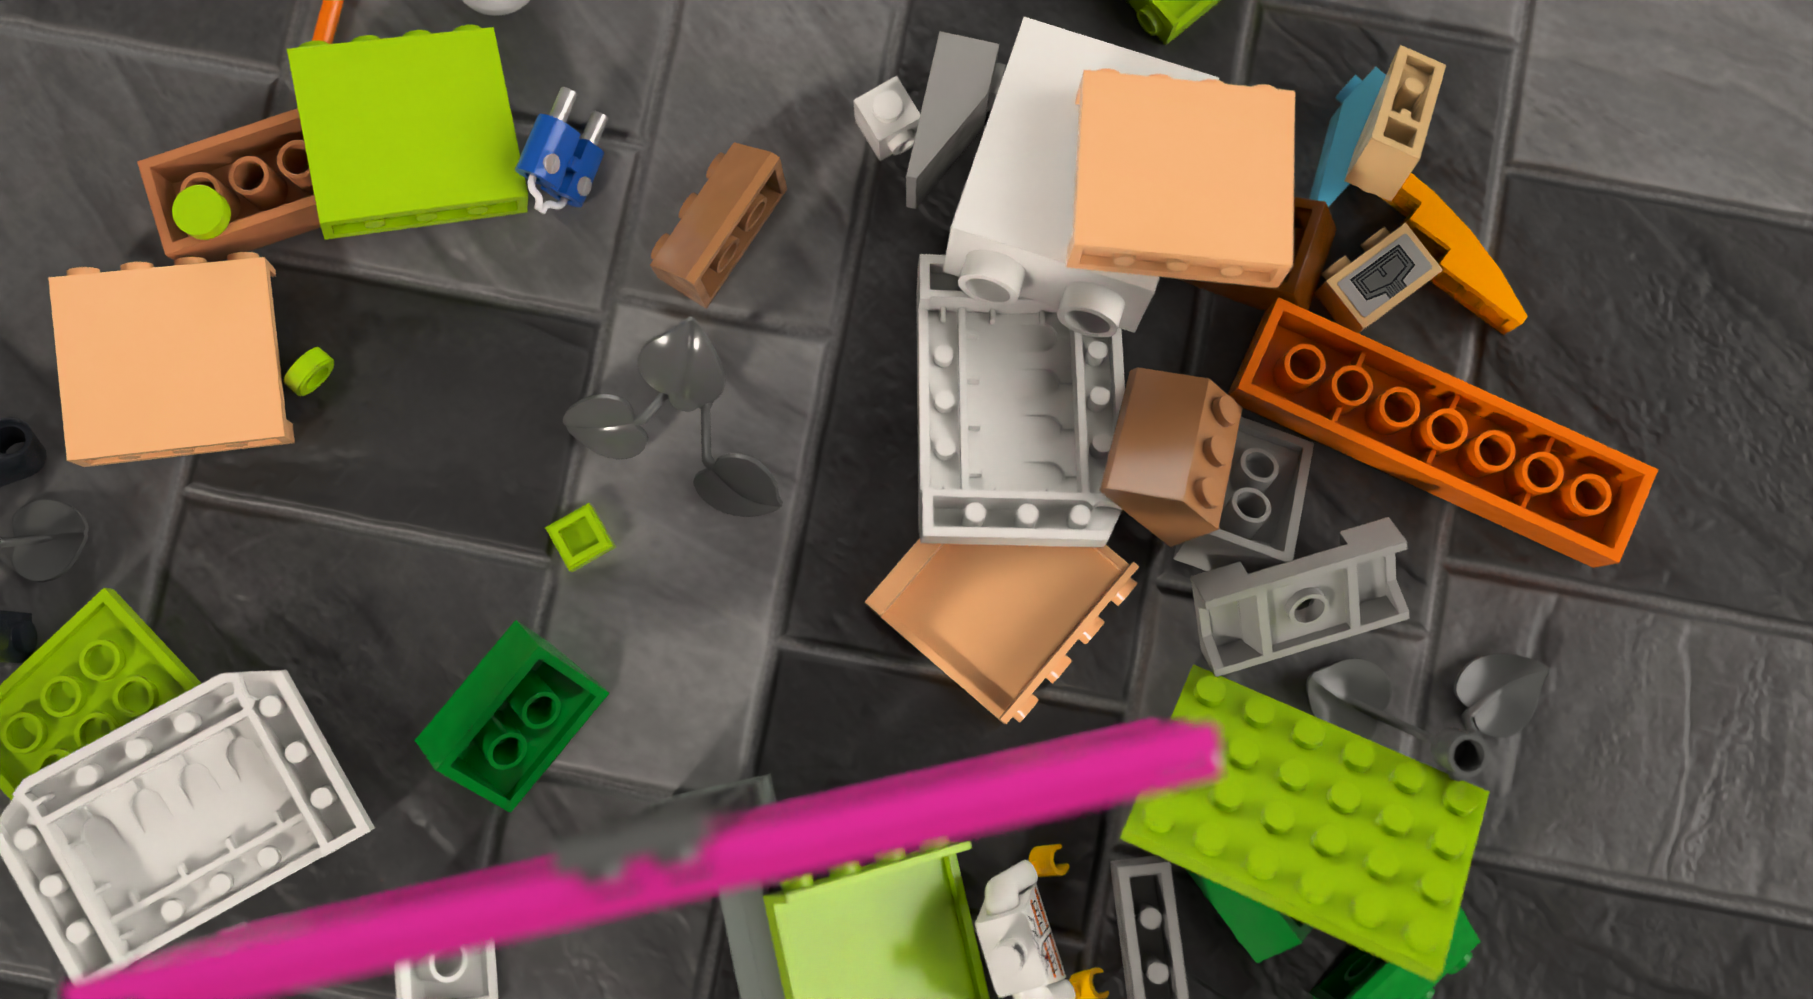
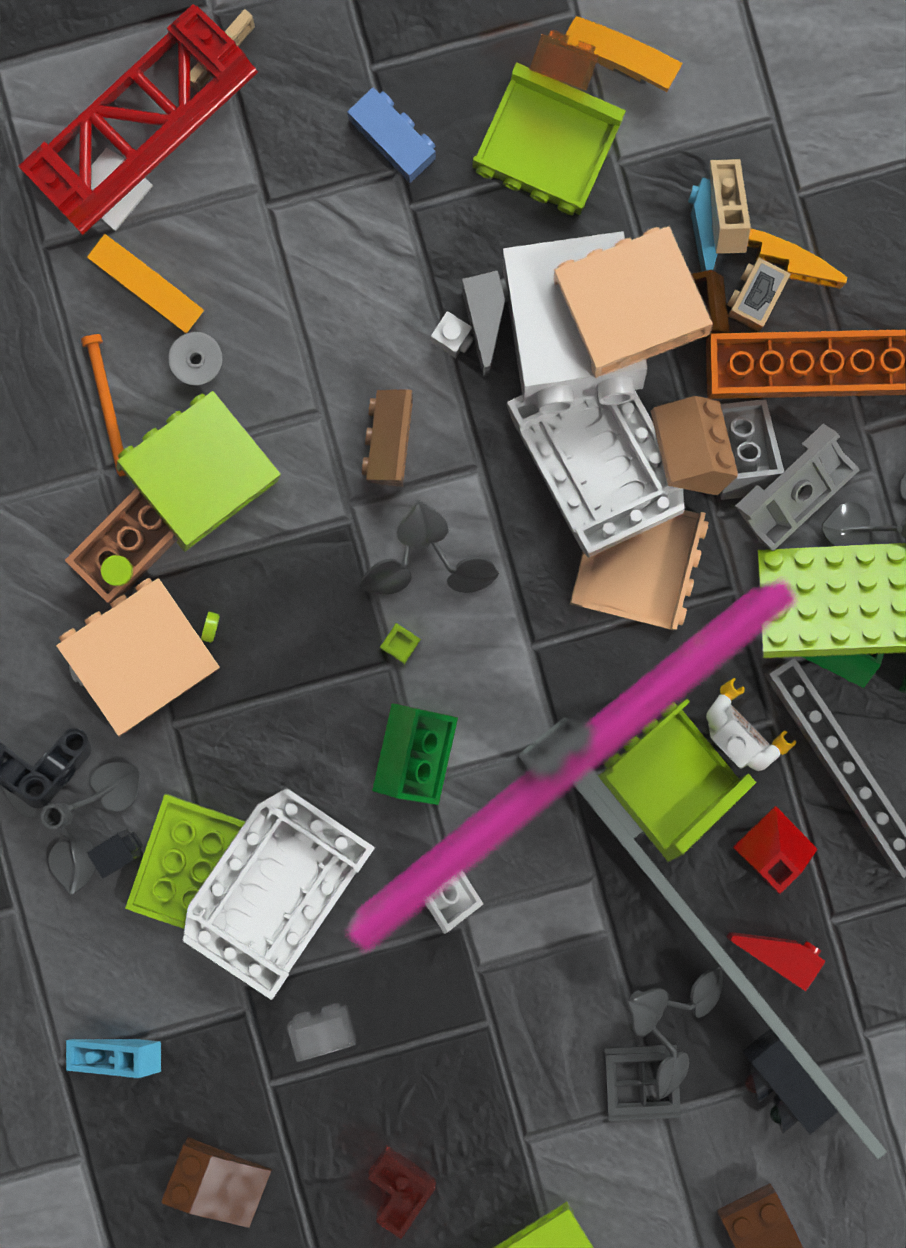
camera: 30 degrees left, 5 degrees up
(559, 157) = (286, 443): blue piece -> none

